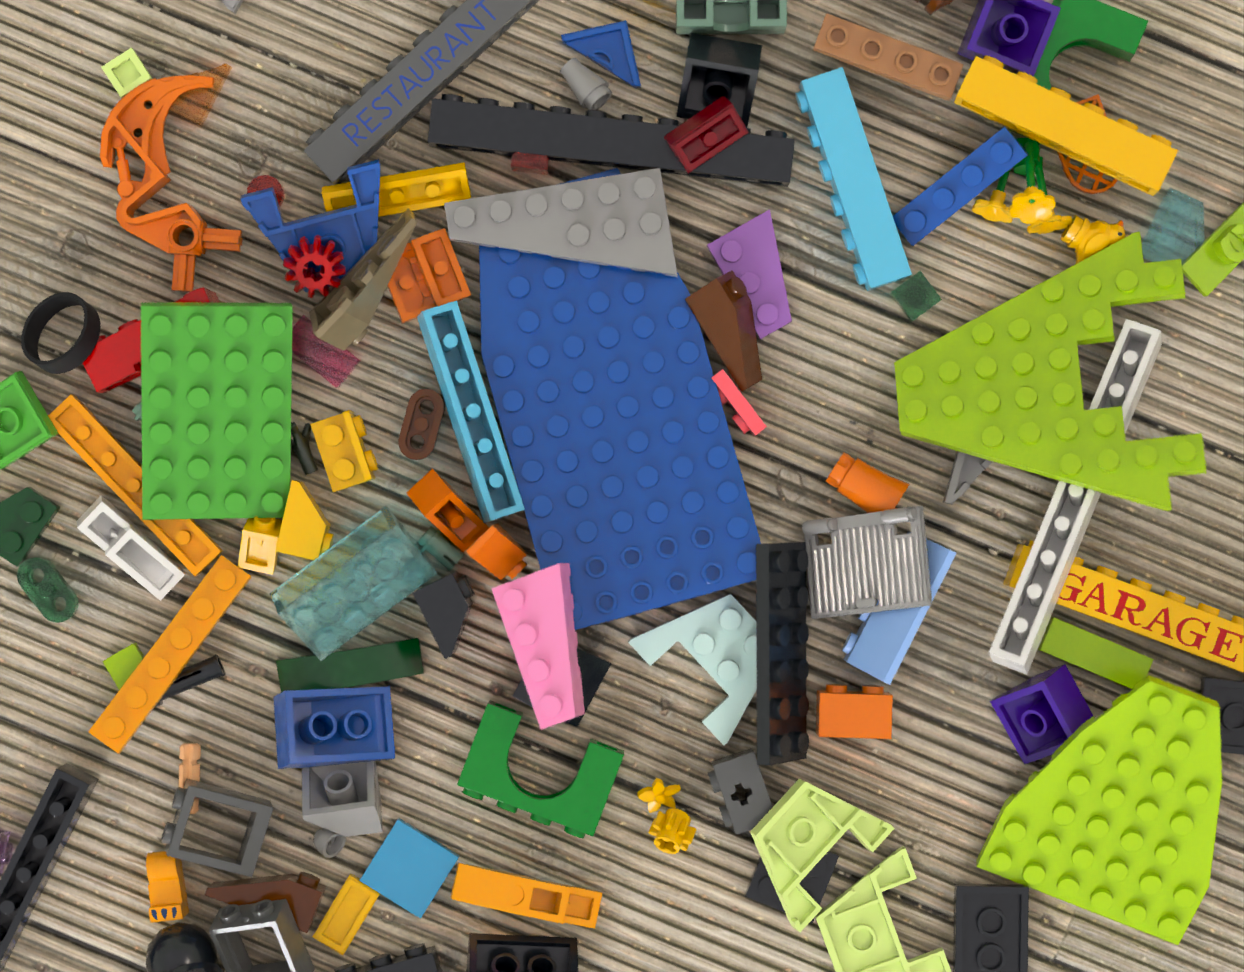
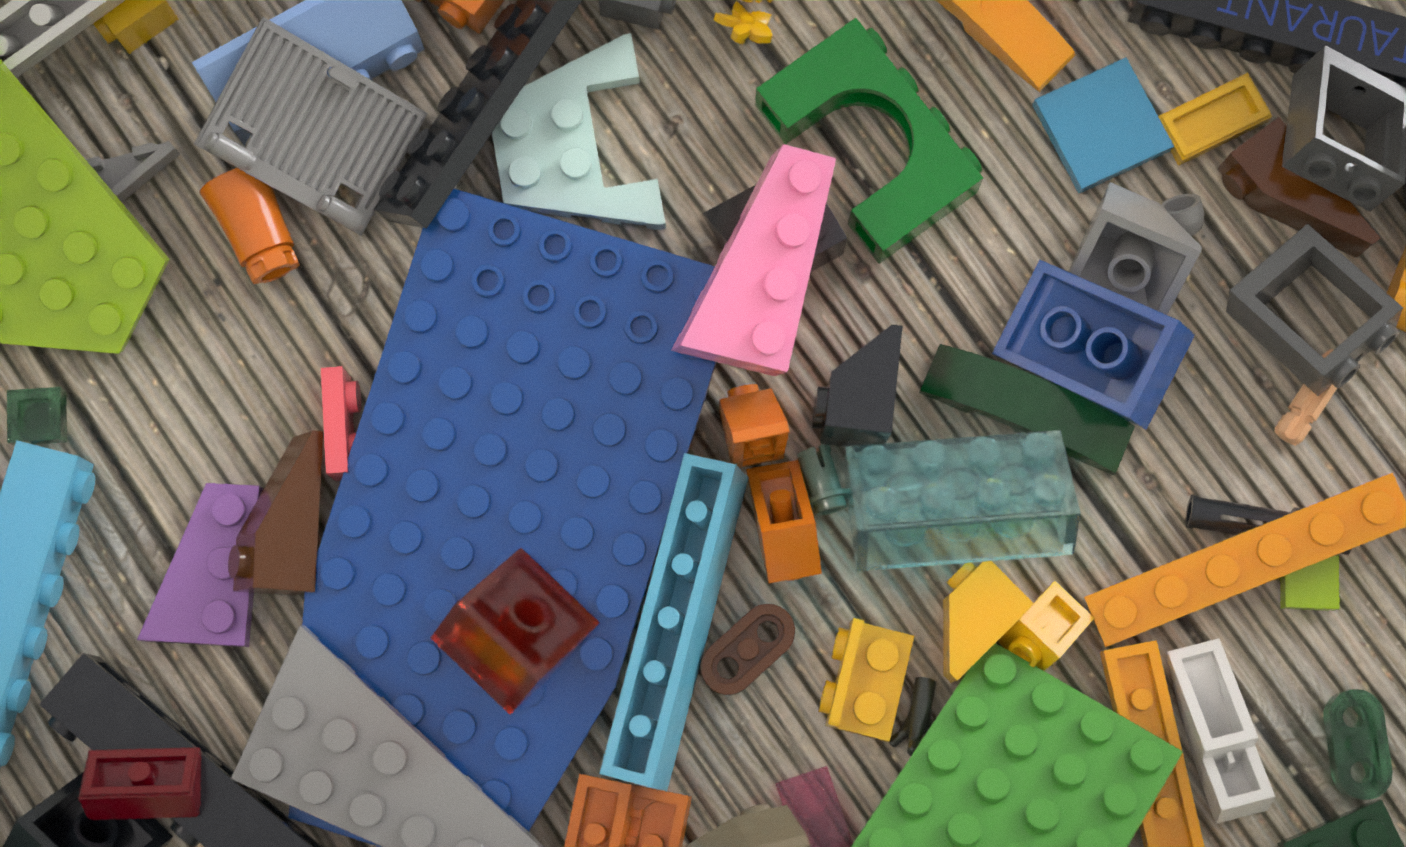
camera: 145 degrees left, 10 degrees down
(553, 348) = (514, 630): none -> clear red slope

